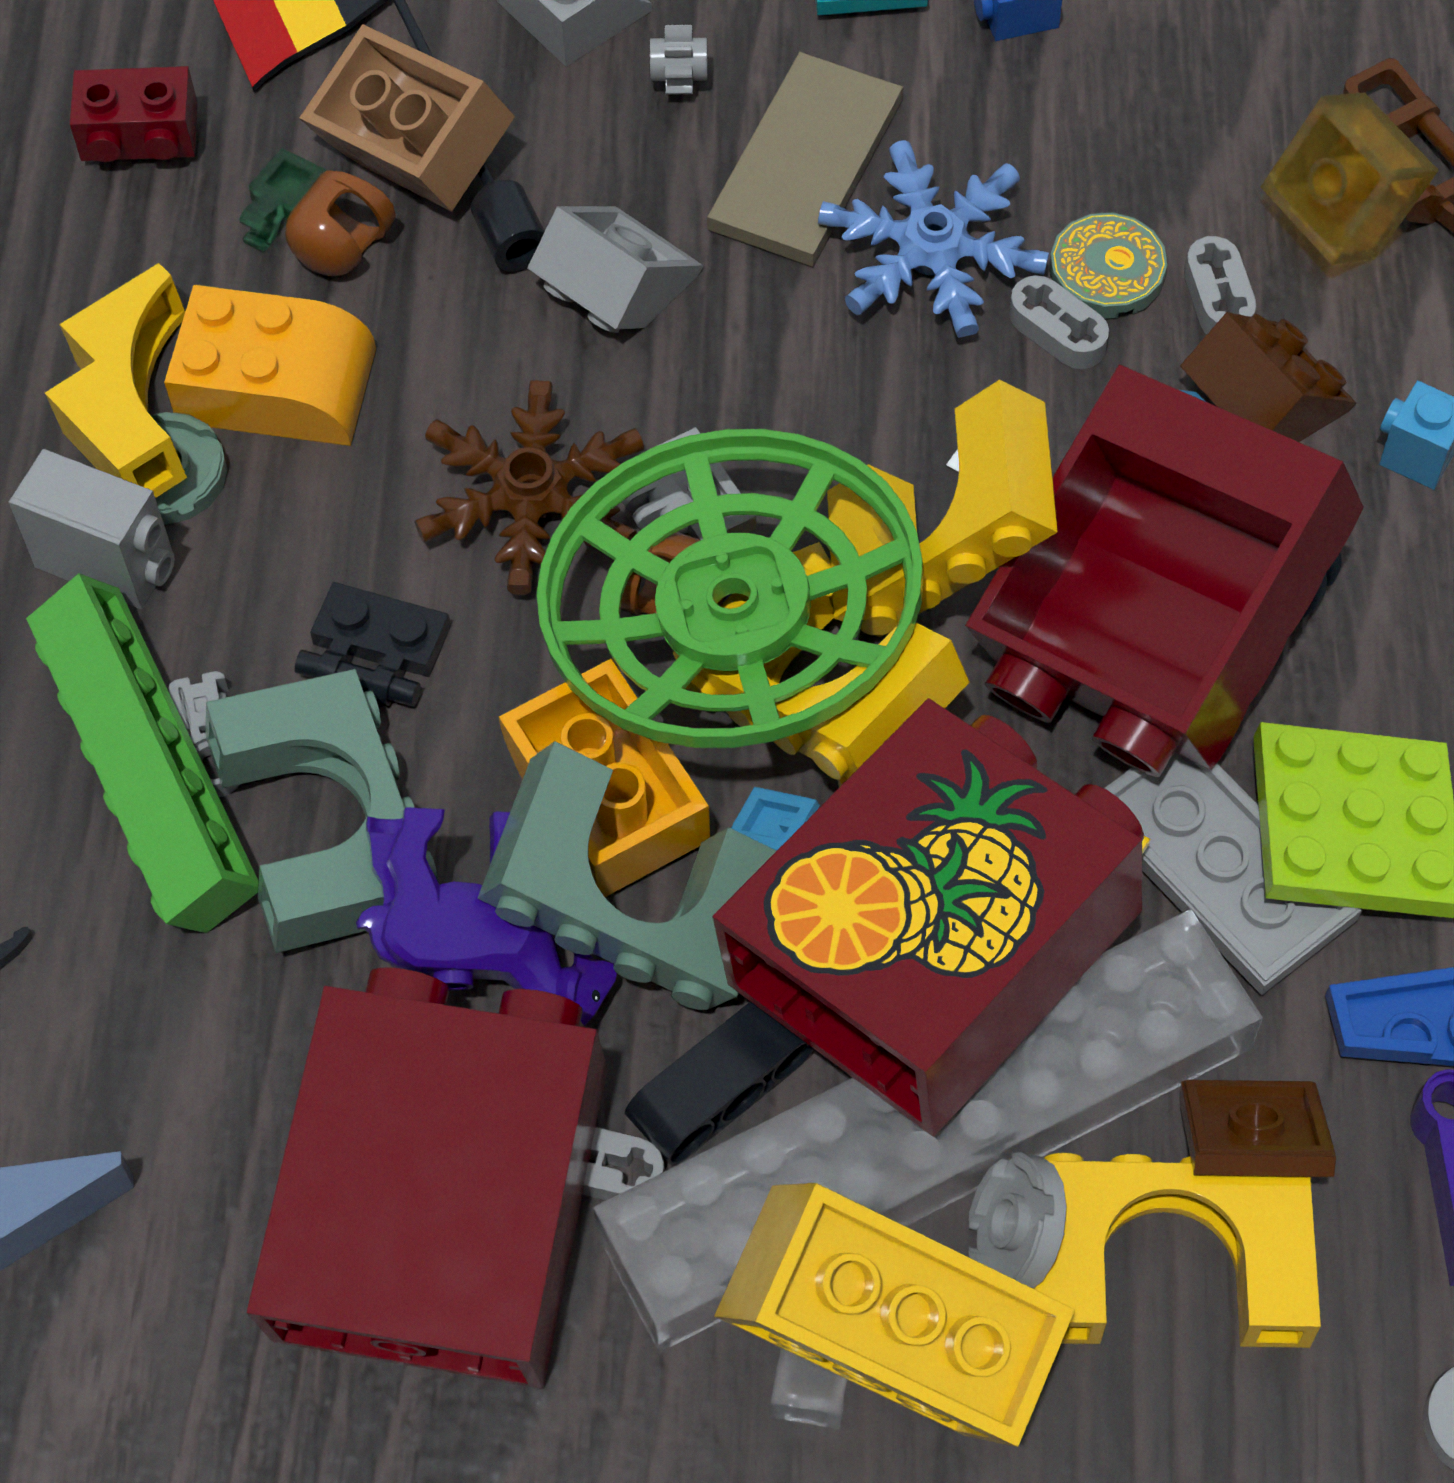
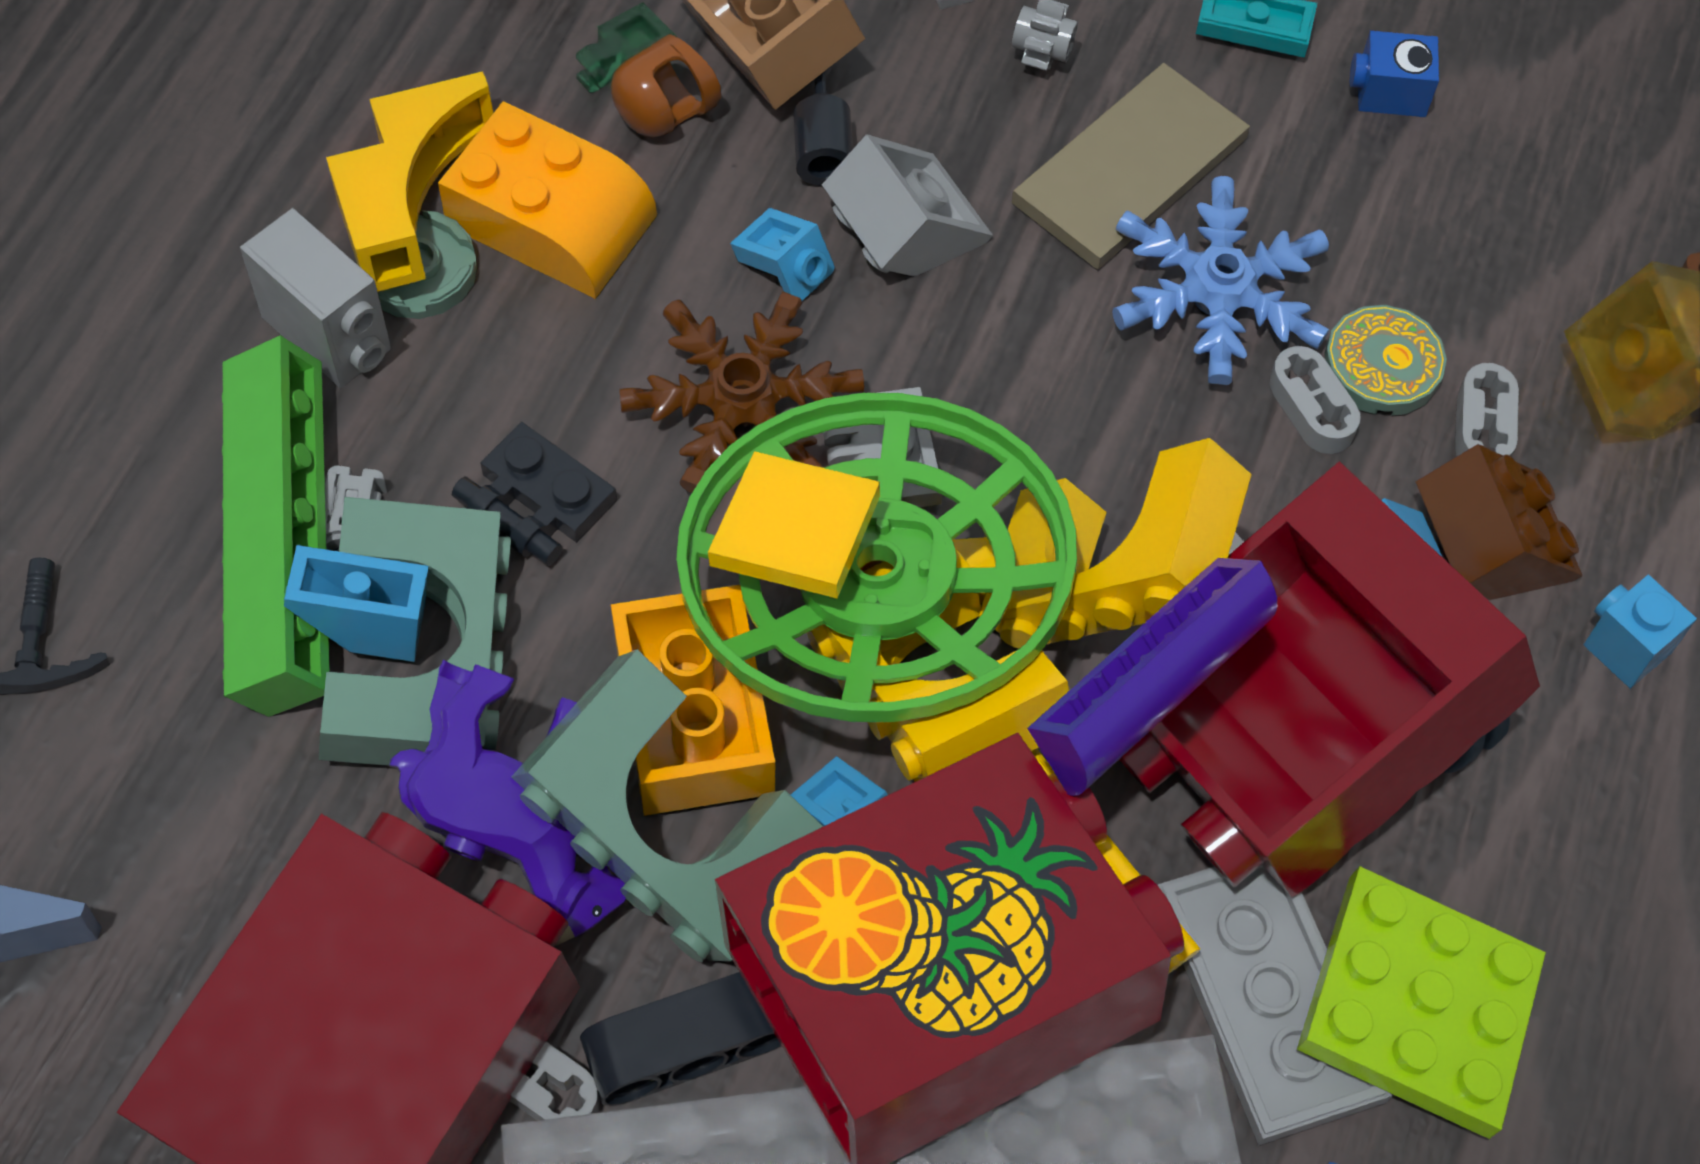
camera: 15 degrees right, 0 degrees up
(260, 793) = (359, 600): none -> dark azure slope
(516, 339) = (786, 249): none -> dark azure bracket
(649, 583) = (794, 524): none -> yellow tile
(1029, 601) = (1154, 671): none -> dark purple brick

